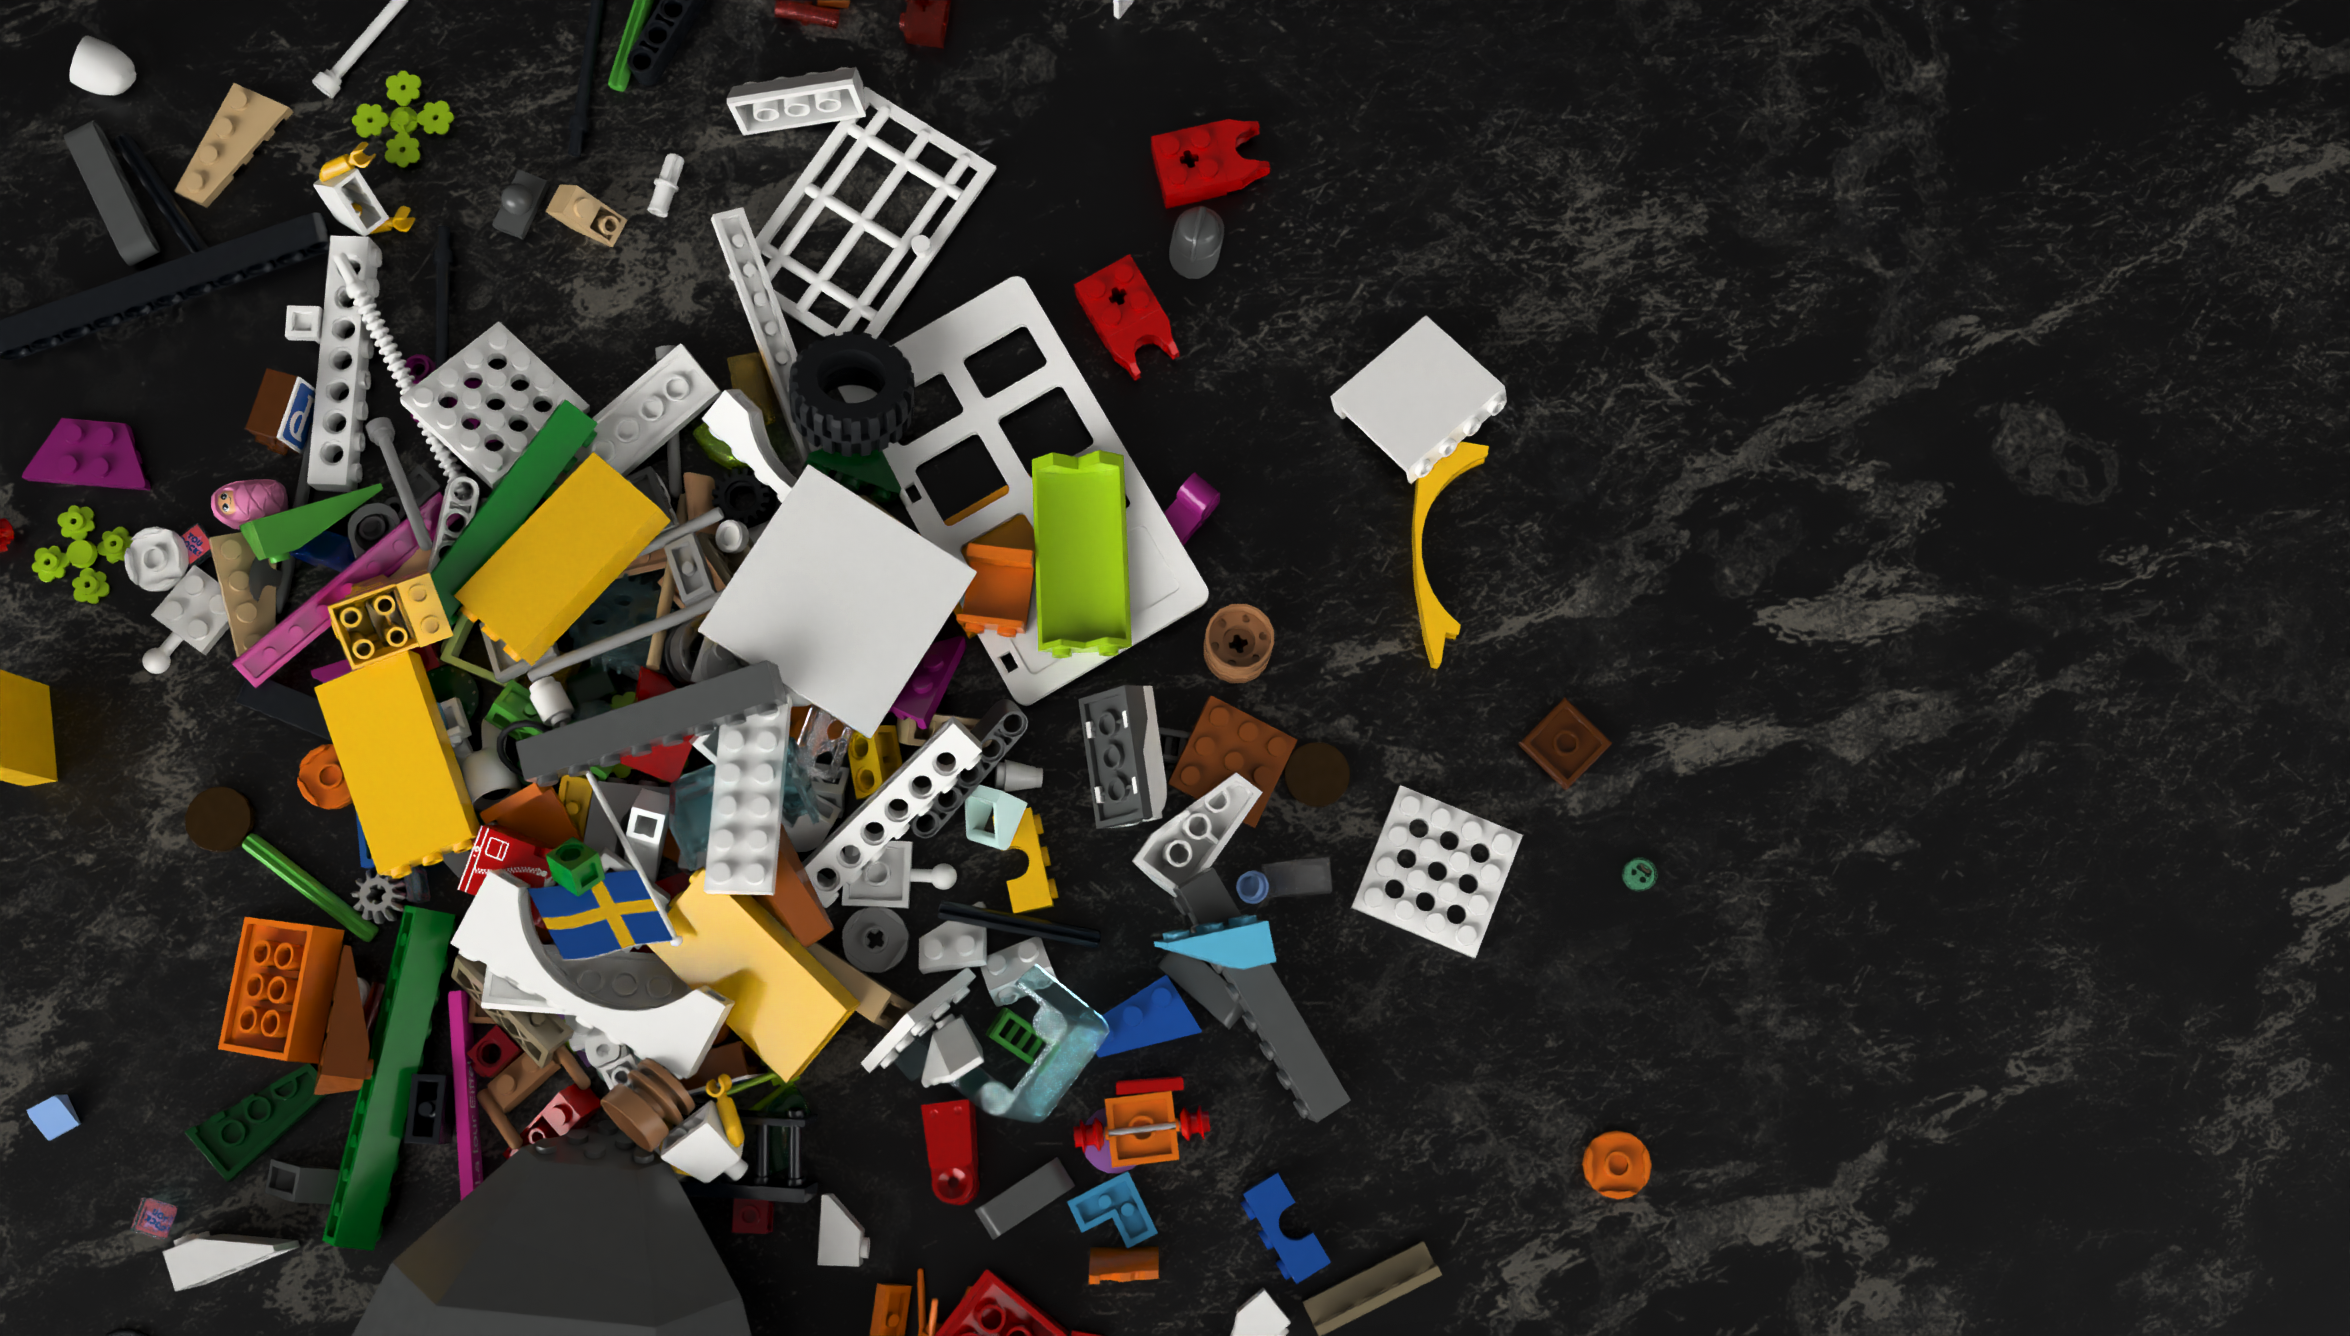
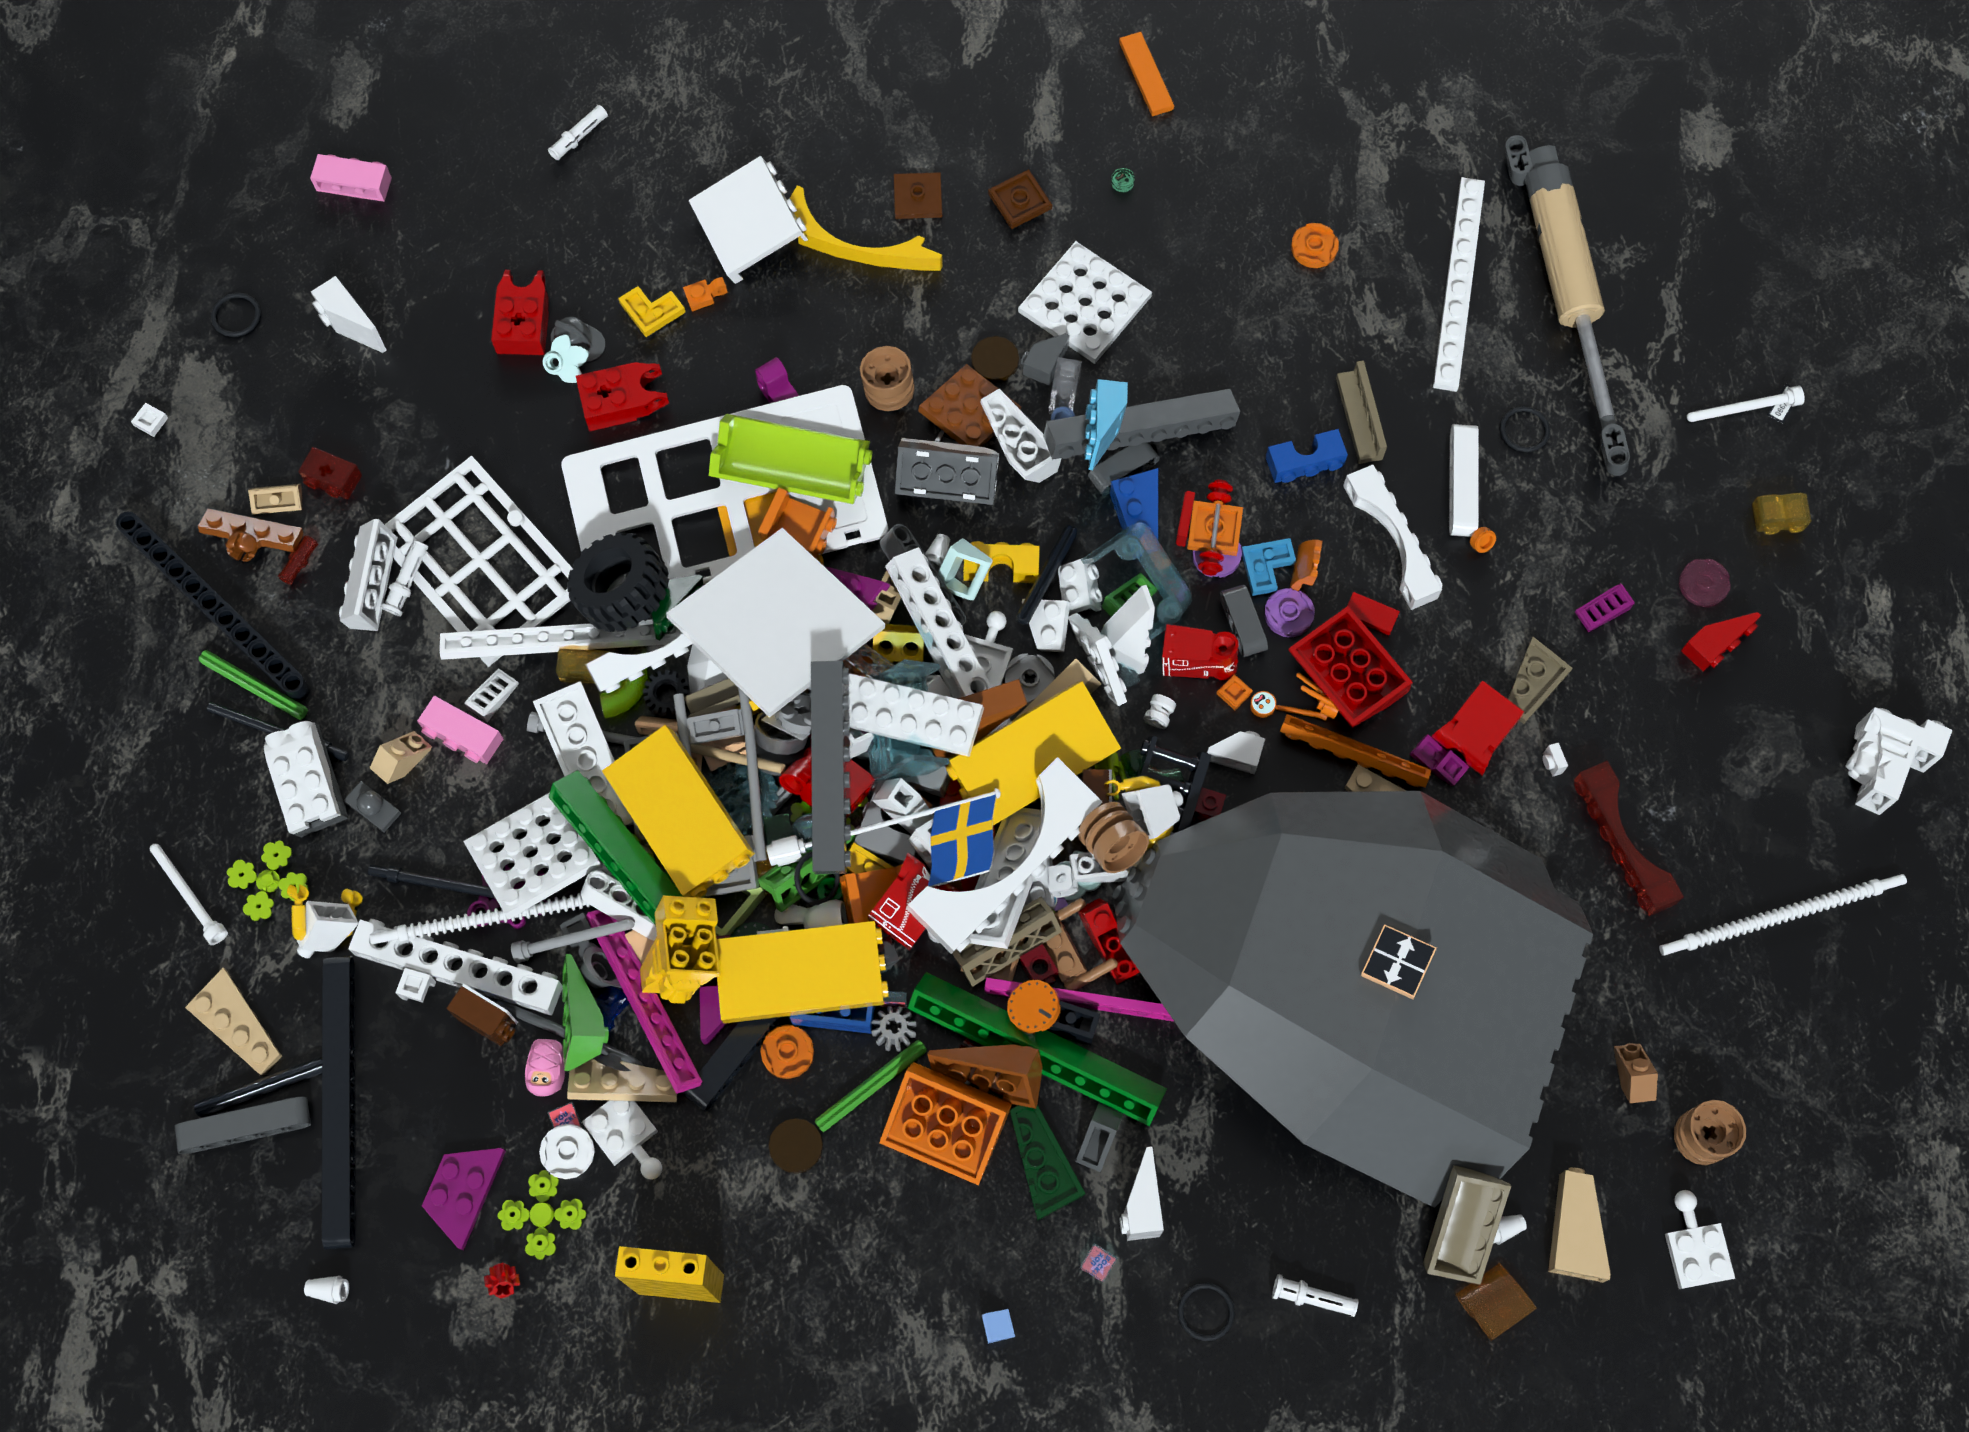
camera: 75 degrees left, 10 degrees down
(101, 68) = (134, 1104): white piece -> none
(427, 1059) = (1033, 1006): none -> orange tile
(526, 115) = (304, 779): none -> white piece
(575, 866) = (921, 845): green brick -> none
(634, 271) = (459, 730): none -> bright pink brick
(666, 185) = (397, 694): white axle -> none
(666, 284) = (486, 713): none -> white slope
(732, 536) = (697, 697): white tile -> none
(797, 143) = (401, 588): none -> white pin
(870, 1118) = (1159, 712): none -> white wheel
(917, 1251) = (1263, 704): none -> tile
(925, 1209) = (1234, 692): none -> orange tile
(1056, 1256) = (1289, 612): none -> medium lavender tile
(1158, 235) = (569, 359): none -> light aqua plate
(1252, 318) = (648, 315): none -> yellow plate
(1303, 374) = (701, 295): none -> orange plate
(1332, 839) = (1043, 357): none -> dark grey slope
(1488, 145) = (573, 136): none -> white pin
(1531, 607) = (917, 195): none -> reddish brown plate
(1817, 864) = (1146, 74): none -> orange tile

